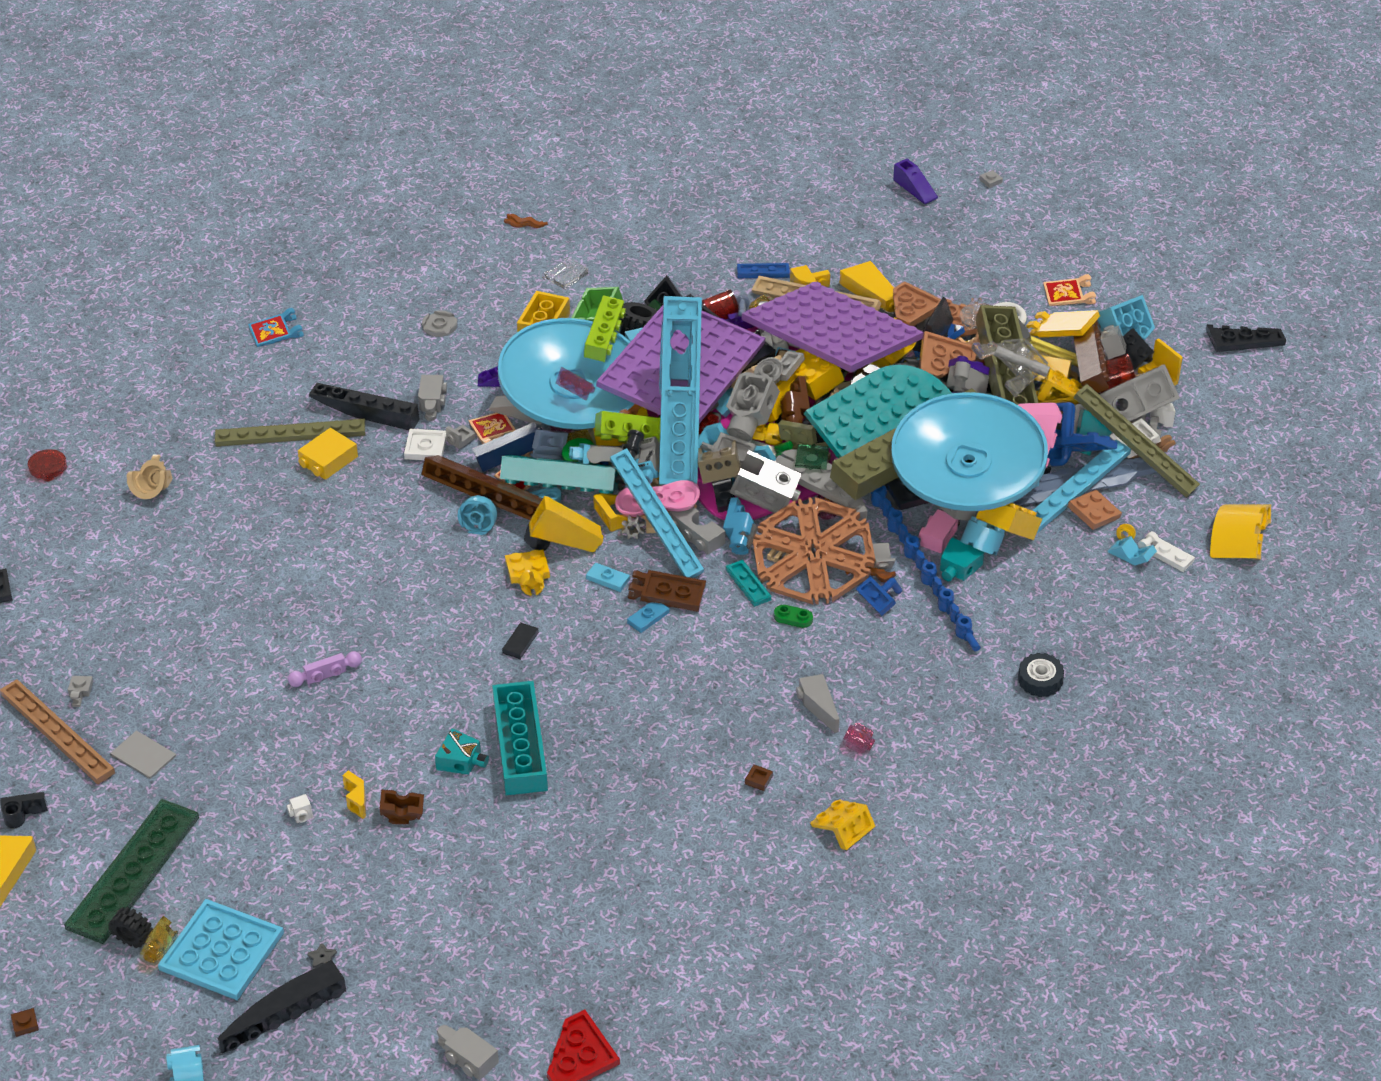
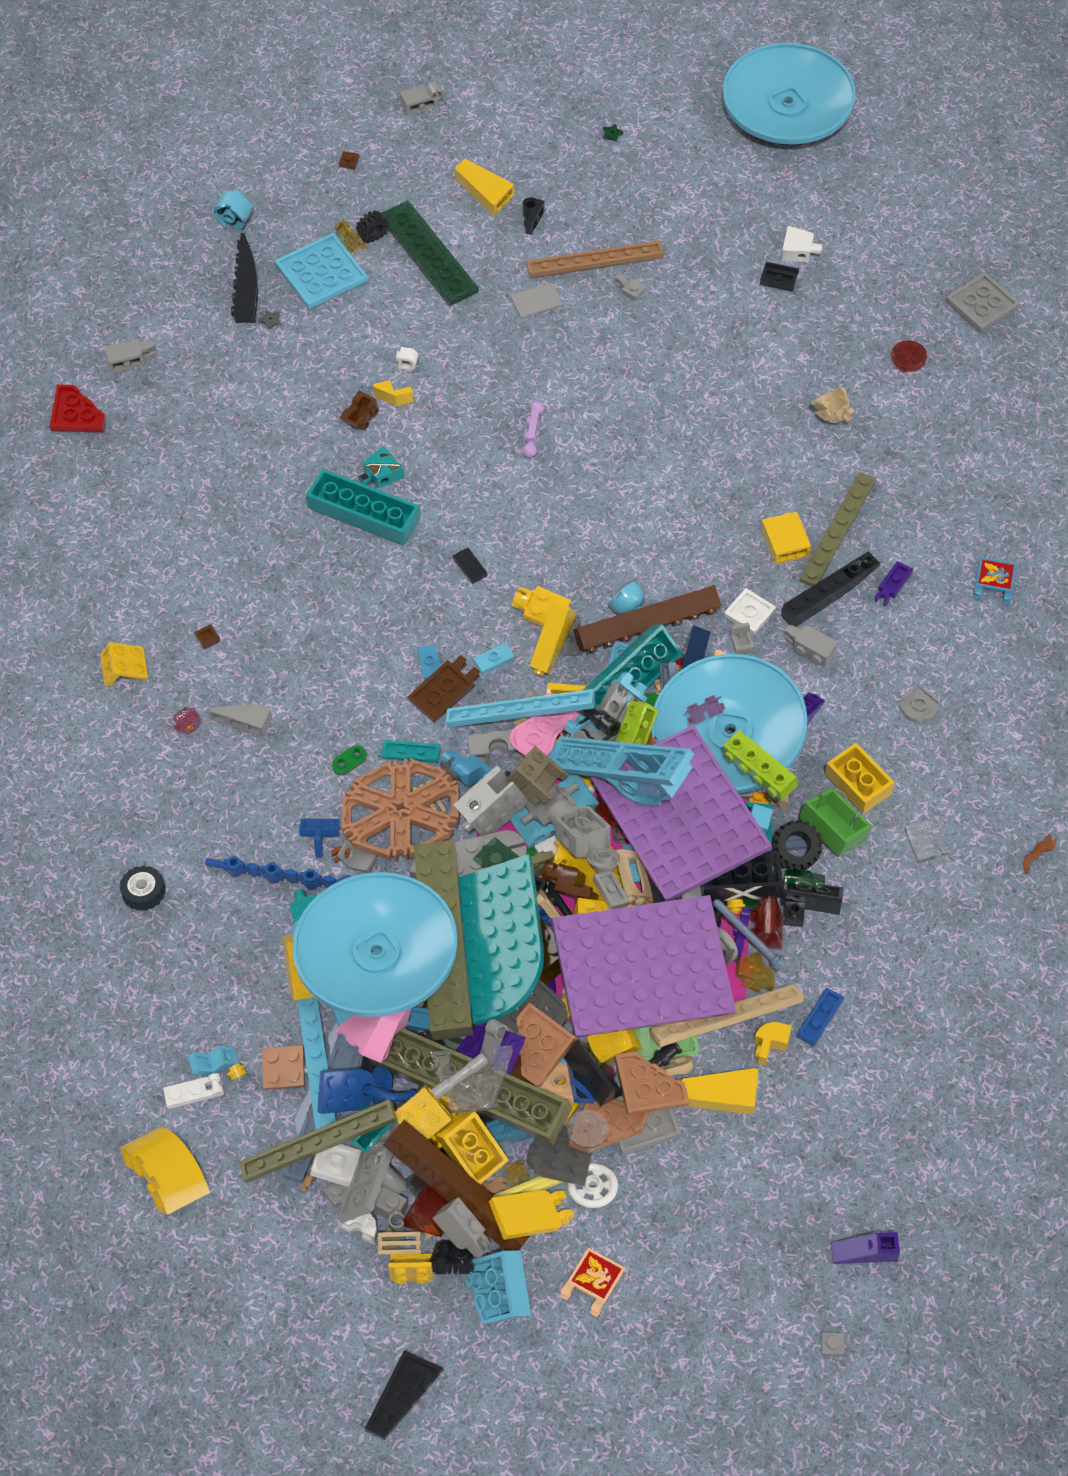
camera: 125 degrees right, 15 degrees up
(326, 376) = (893, 582): none -> dark purple plate

